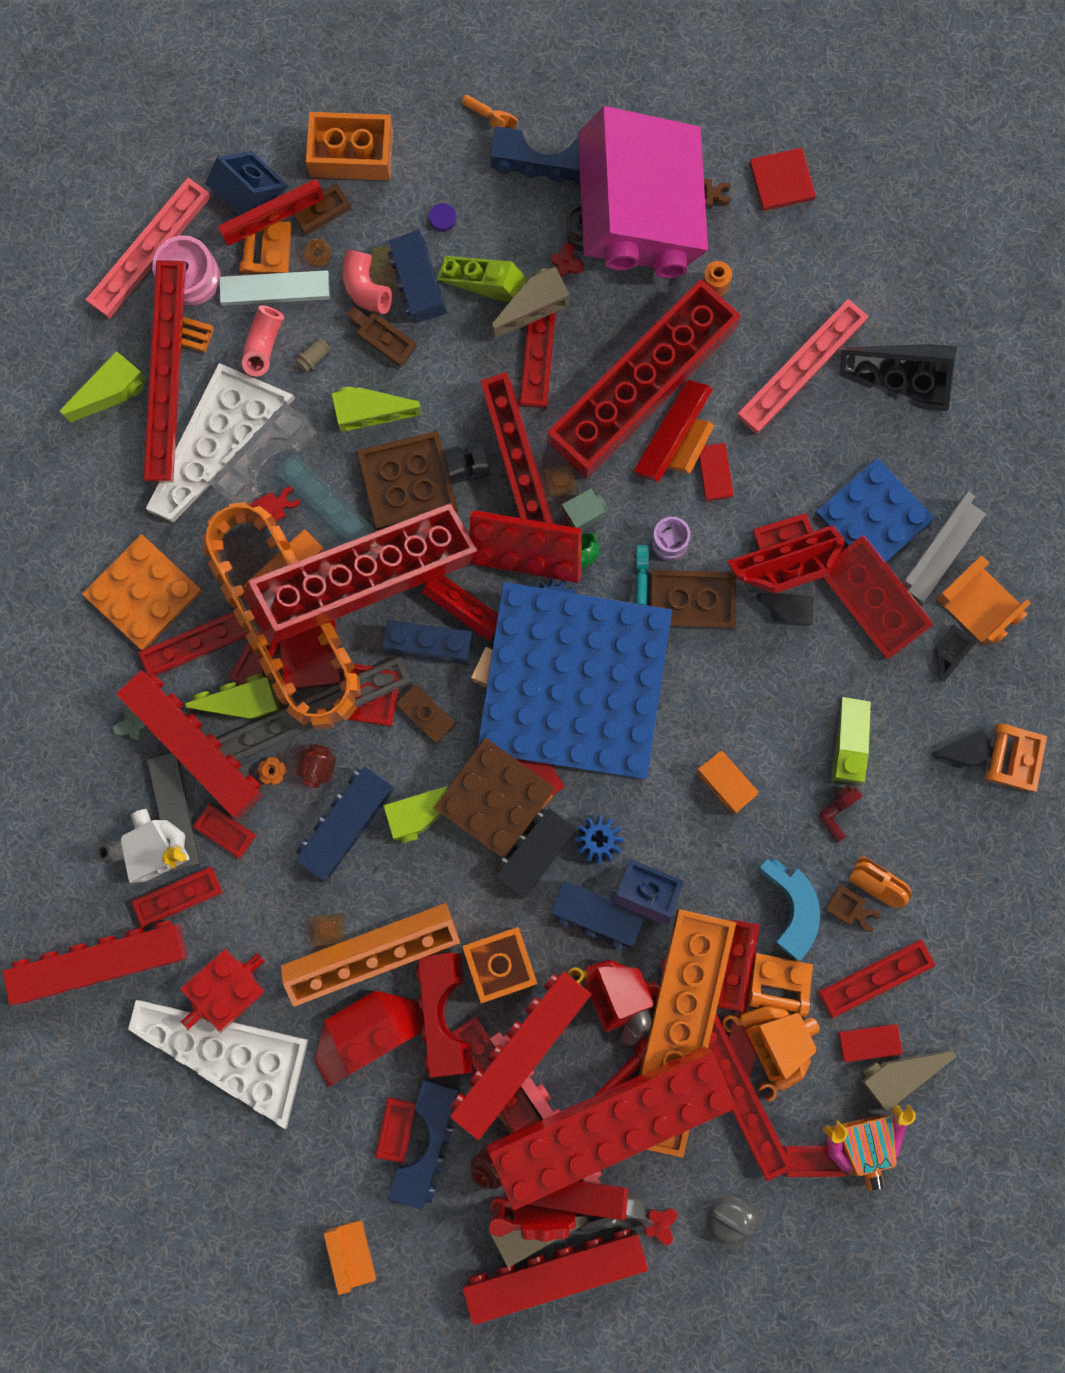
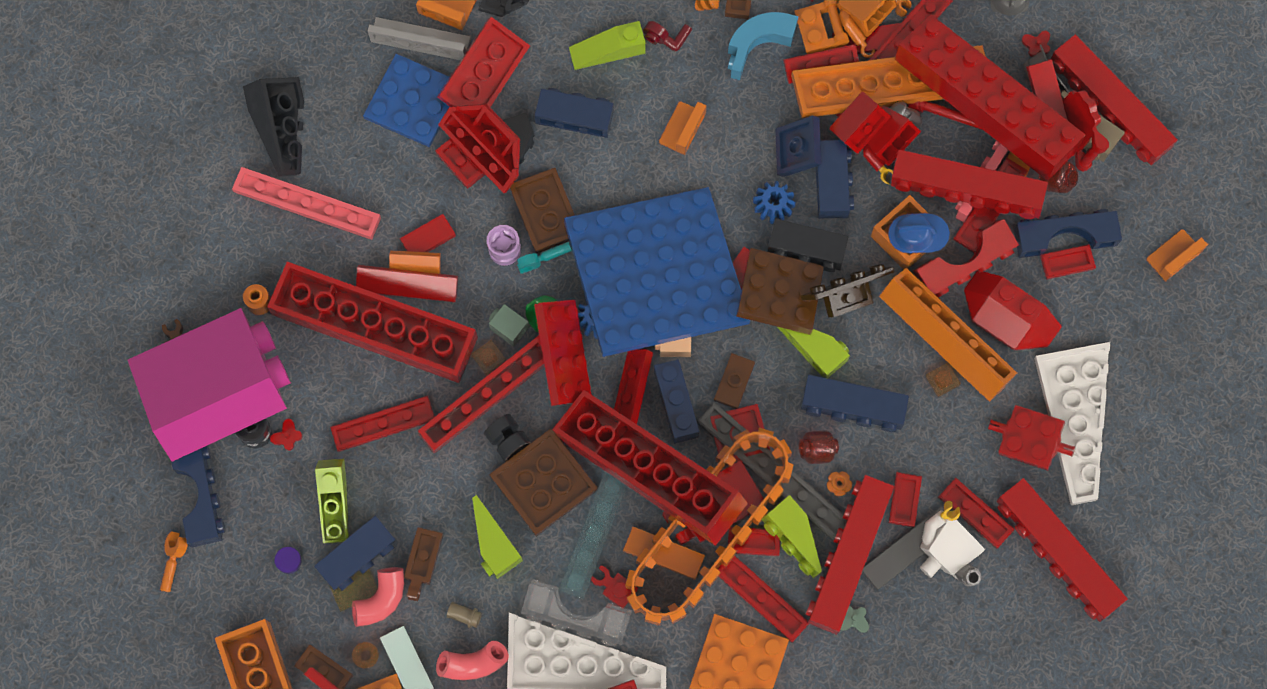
camera: 115 degrees left, 5 degrees down
(461, 870) = (848, 294): none -> dark brown bracket
(488, 972) = (918, 233): none -> blue piece
(538, 298) = (337, 440): dark tan slope -> none
(643, 967) = (860, 122): none -> red panel
(782, 179) = (139, 286): red tile -> none
(790, 673) = (574, 112): none -> dark blue brick

